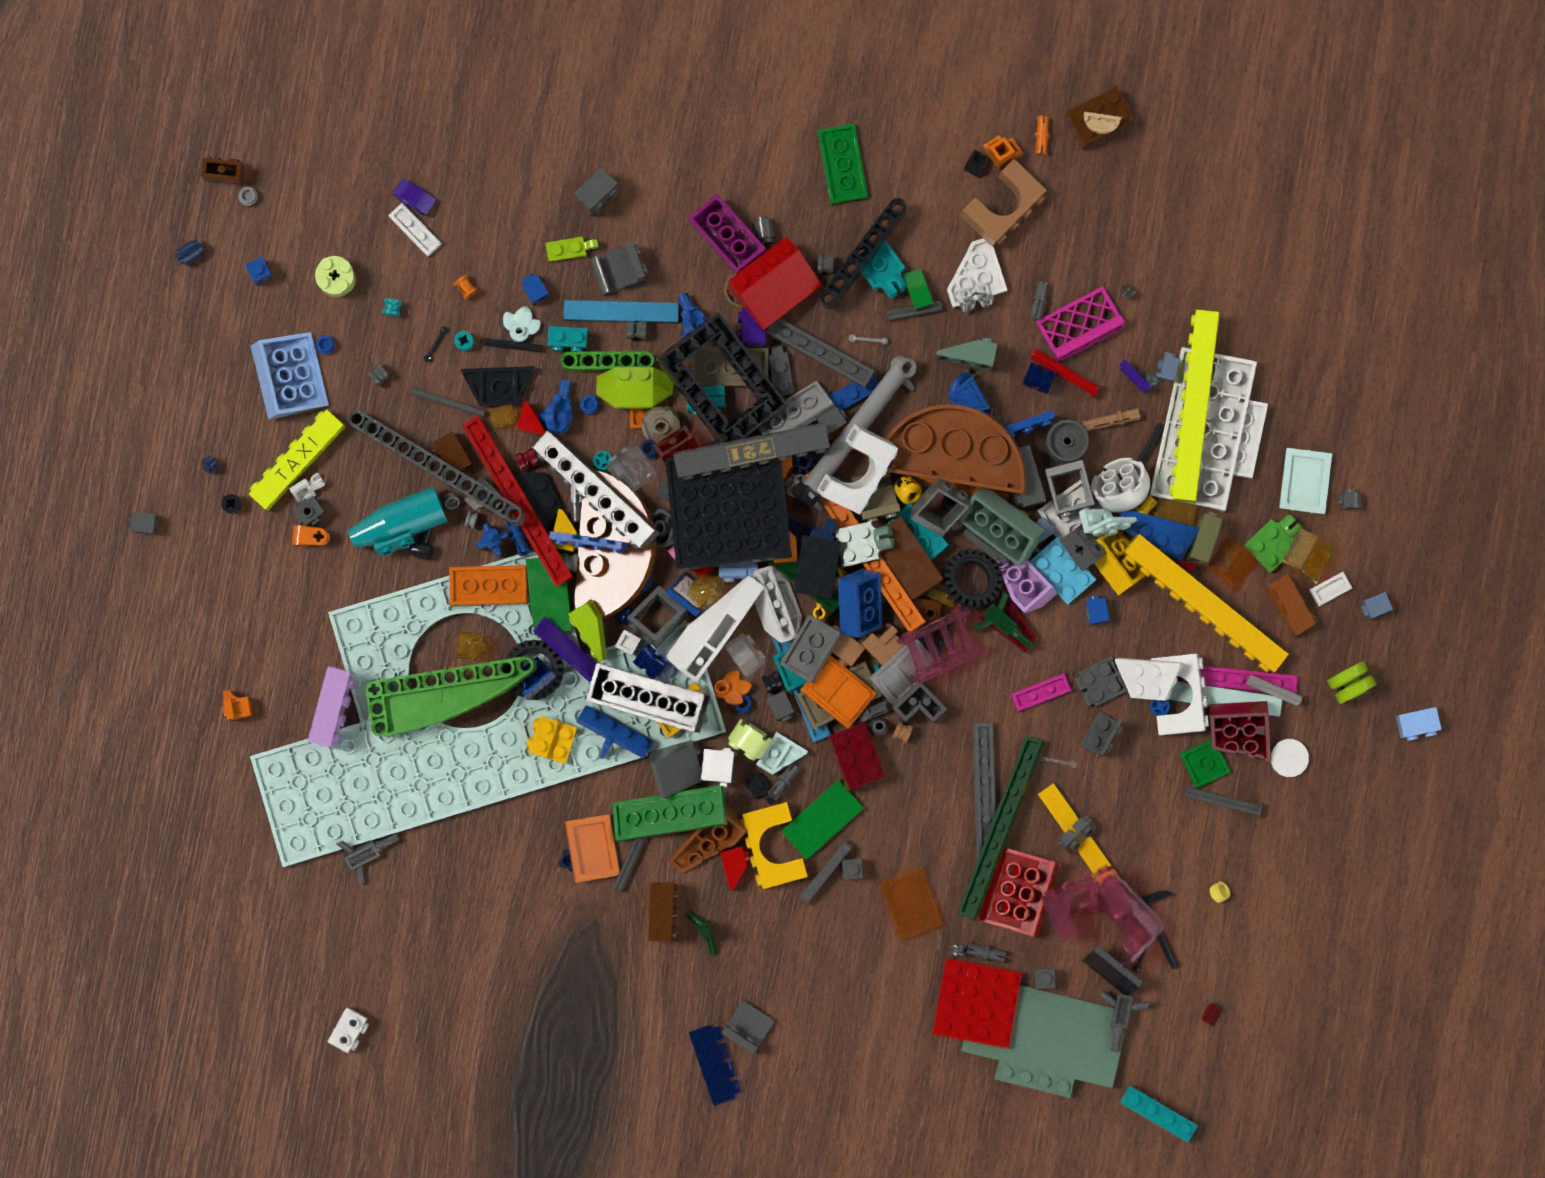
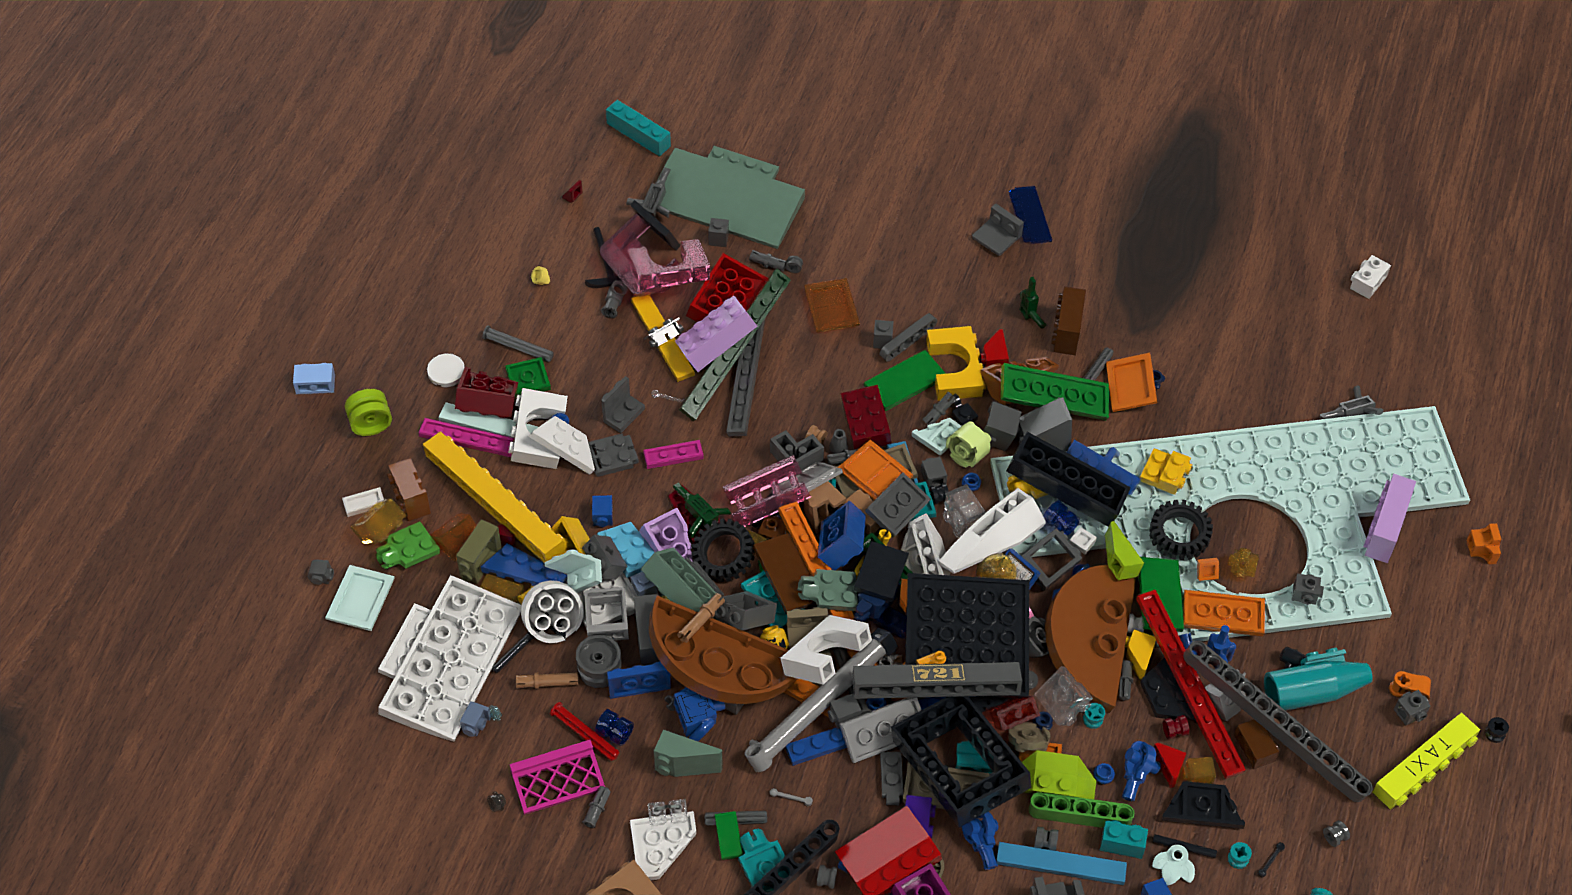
camera: 170 degrees left, 30 degrees down
(209, 465) = (1522, 769): dark blue plate -> none
(289, 375) = (1436, 847): light blue slope -> none
(306, 489) = (1417, 731): white plate -> none
(325, 344) = (1396, 875): blue plate -> none
(416, 620) = (1307, 589): none -> dark grey brick
(429, 705) = (1276, 514): bright green beam -> none
(448, 402) = (1260, 799): dark grey bar -> none
(505, 628) = (1207, 569): none -> orange tile
(538, 679) = (1179, 516): clear blue wing -> none
(566, 648) = (1147, 539): dark purple tile -> none
(580, 541) = (1108, 619): wing -> none
(646, 532) = (1095, 672): brick -> none
(734, 688) = (980, 488): orange plate -> none
(758, 472) = (935, 658): none -> light orange arm
(820, 352) = (842, 782): dark grey plate -> none
(975, 481) = (706, 612): none -> medium nougat pin
(976, 1003) = (784, 220): red plate -> none
(1022, 827) = (715, 333): none -> lavender brick
(1134, 376) = (512, 716): dark purple tile -> none
(1137, 870) = (613, 299): none -> dark grey connector
(1195, 406) = (454, 674): neon yellow brick -> none
(1274, 690) = (445, 420): light grey axle -> none
(1376, 606) = (323, 478): sand blue brick -> none

